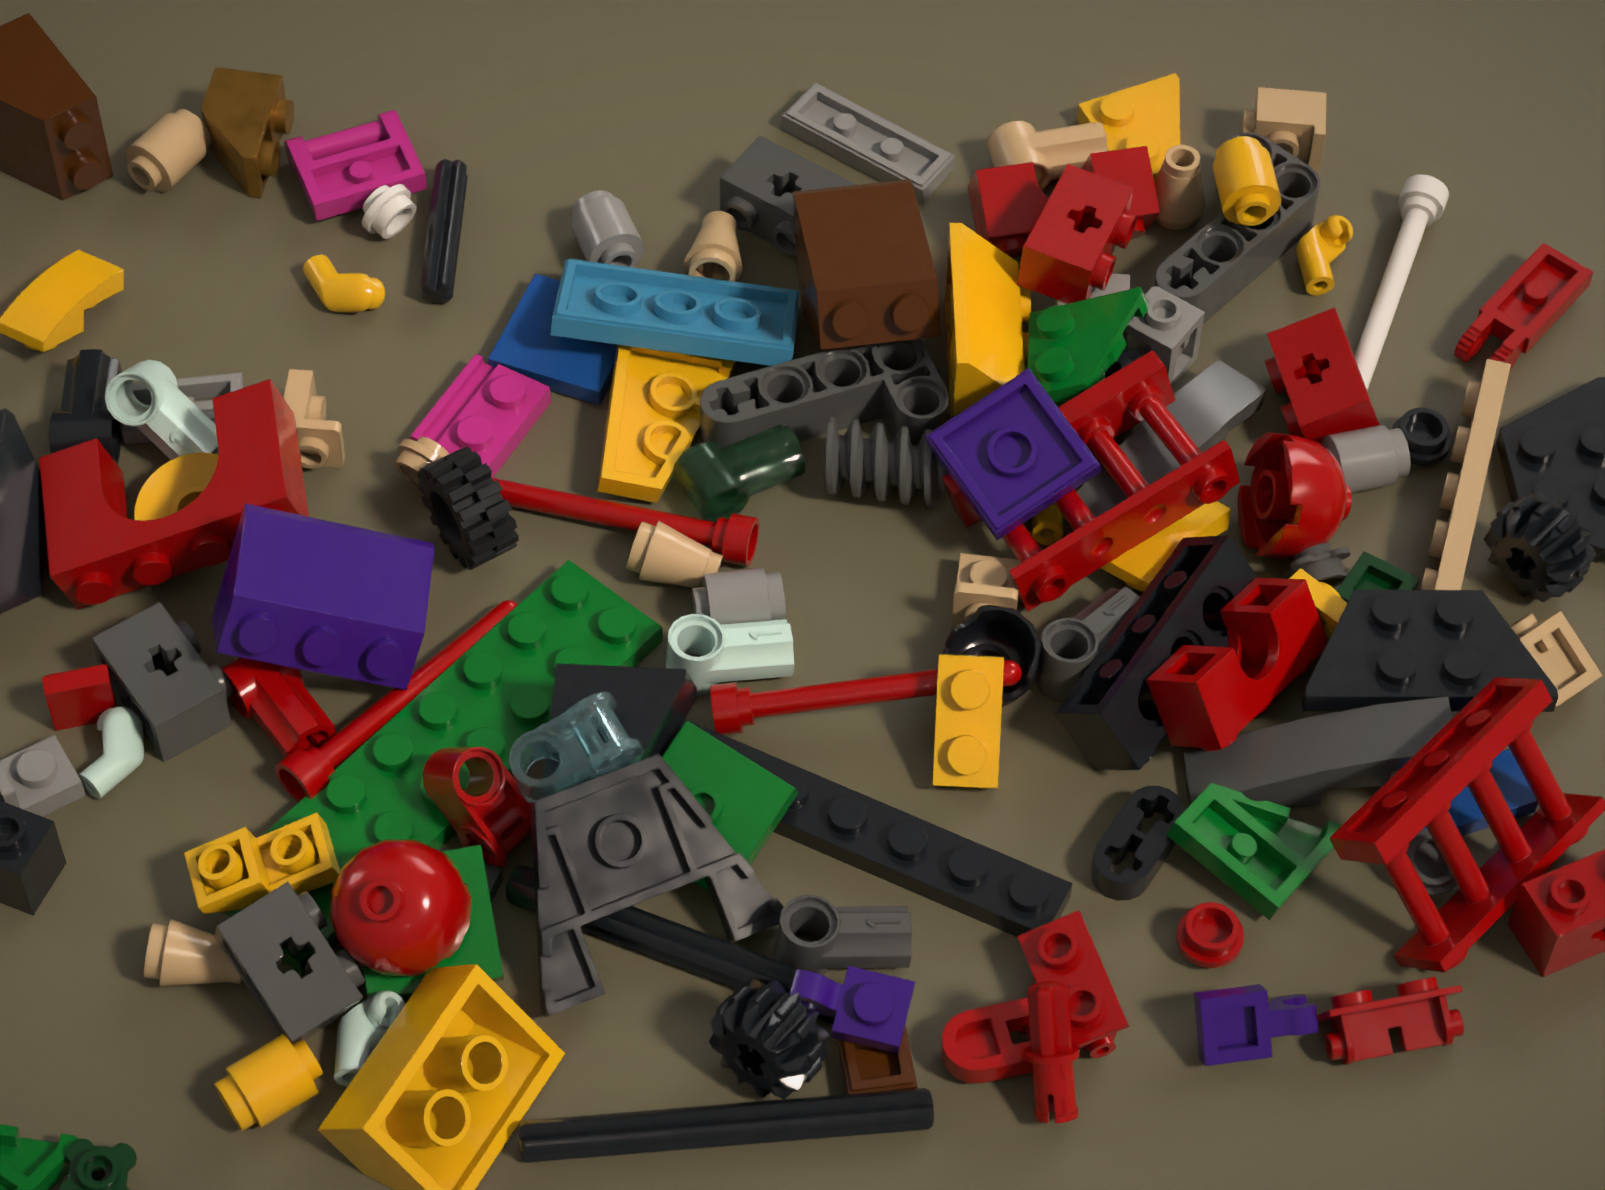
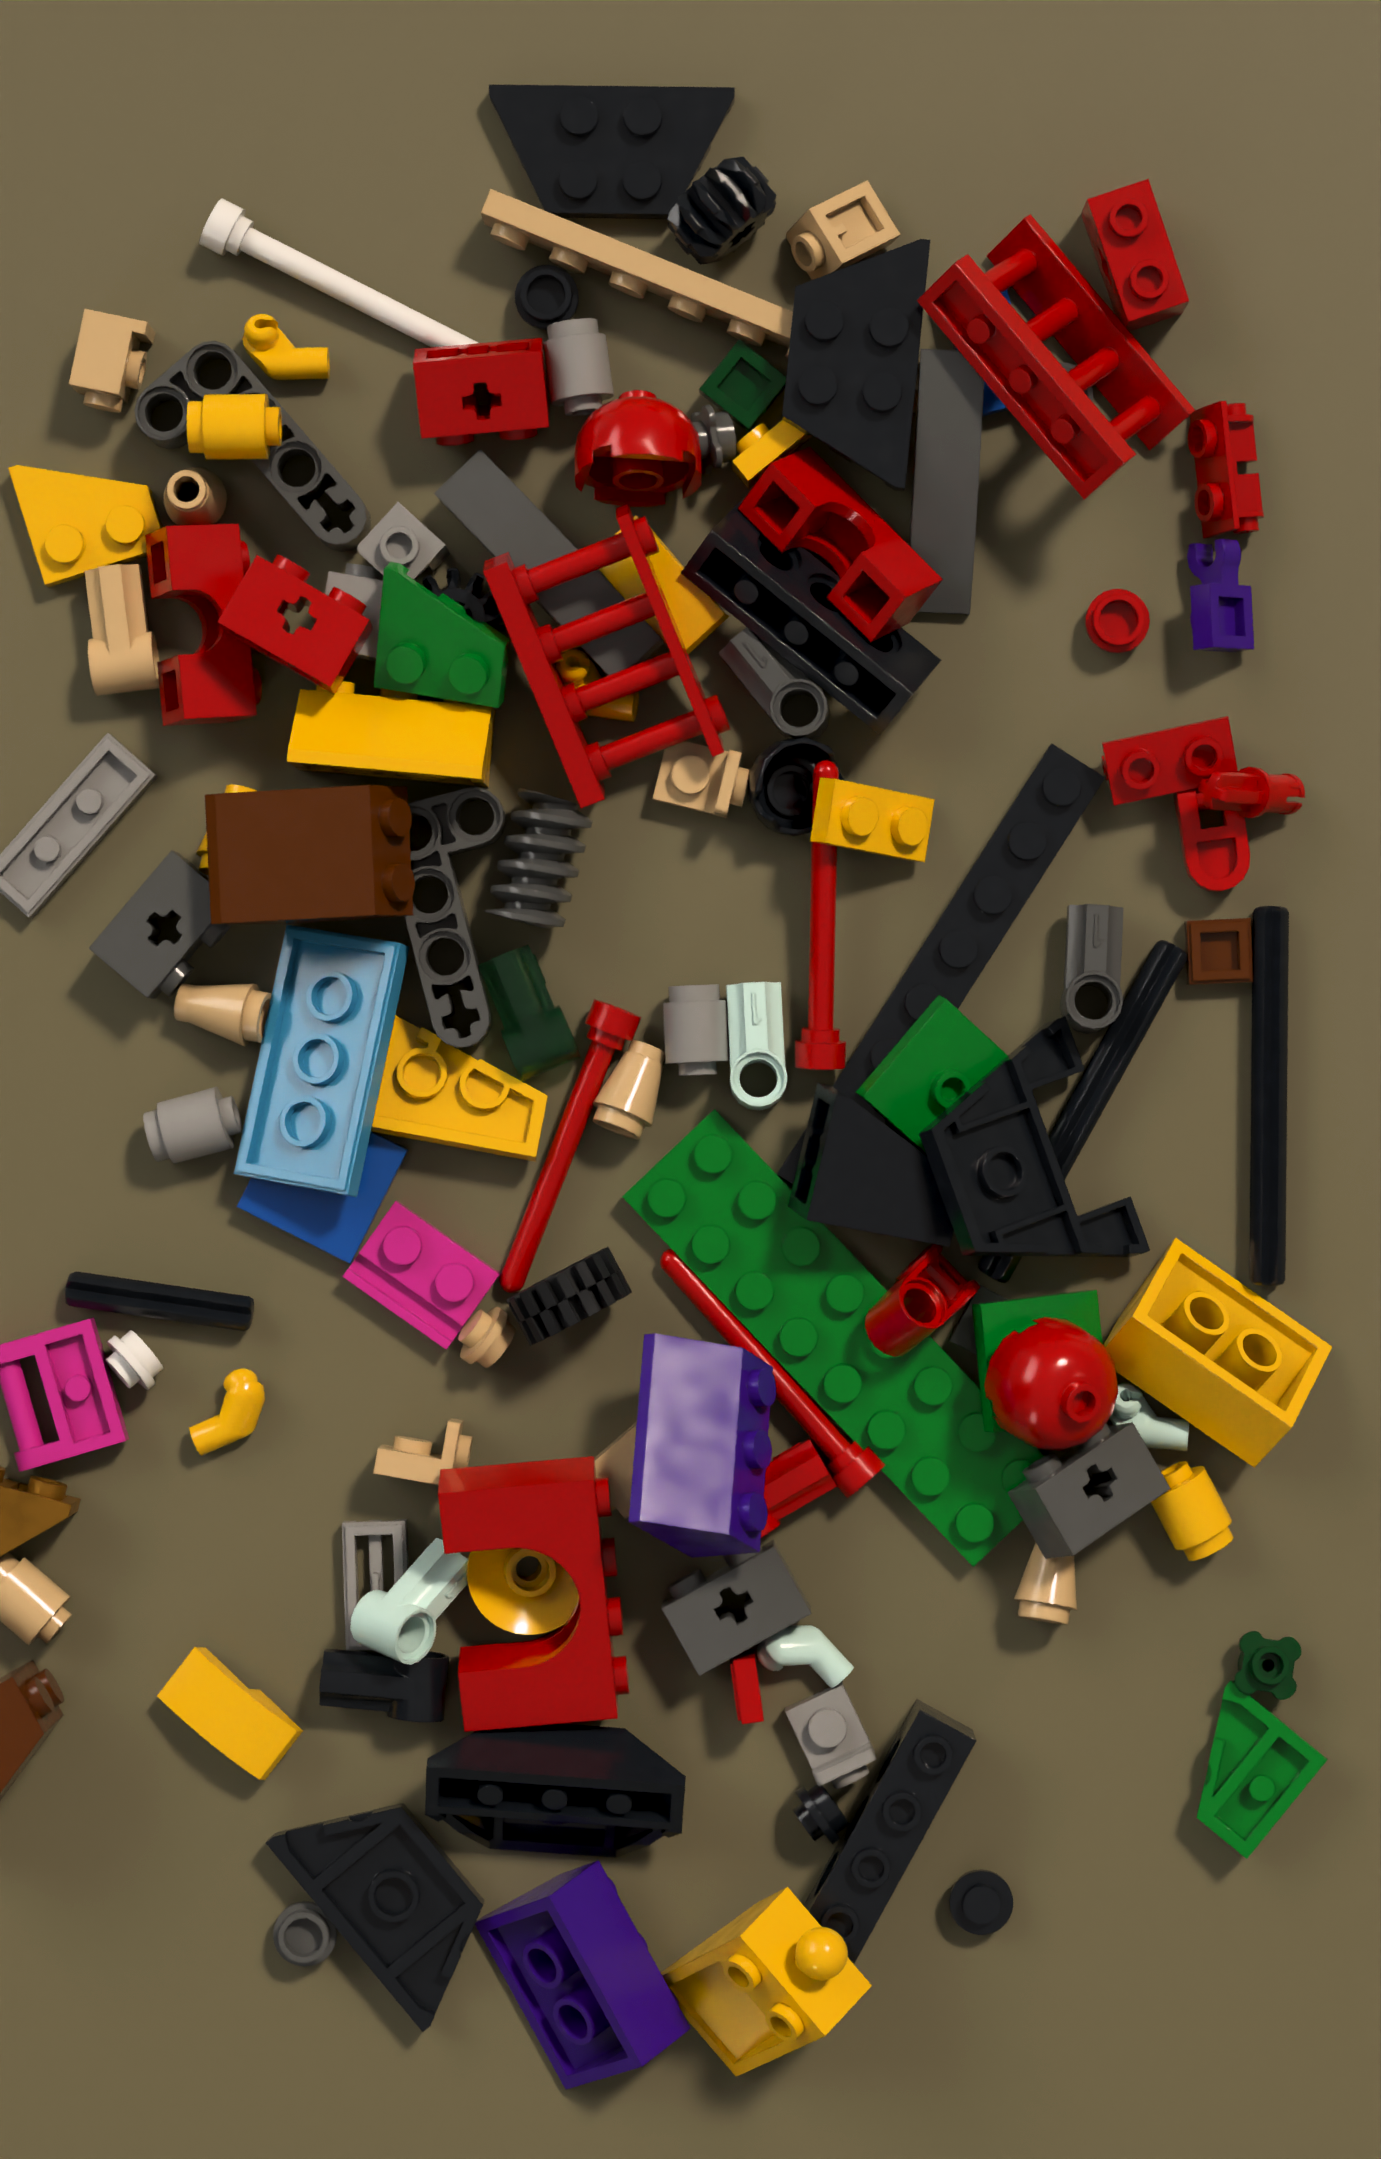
camera: 85 degrees left, 35 degrees up
(243, 868) = (975, 1511): yellow slope -> none
(576, 746) = (910, 1199): clear light blue piece -> none
(768, 1038) = (1208, 1050): black gear -> none
(866, 1008) = (1181, 958): dark purple plate -> none
(1013, 454) = (580, 733): dark purple tile -> none
(1126, 836) = (997, 685): black beam -> none
(1252, 845) = (1031, 561): green wing -> none
(1526, 305) = (384, 147): red hinge -> none

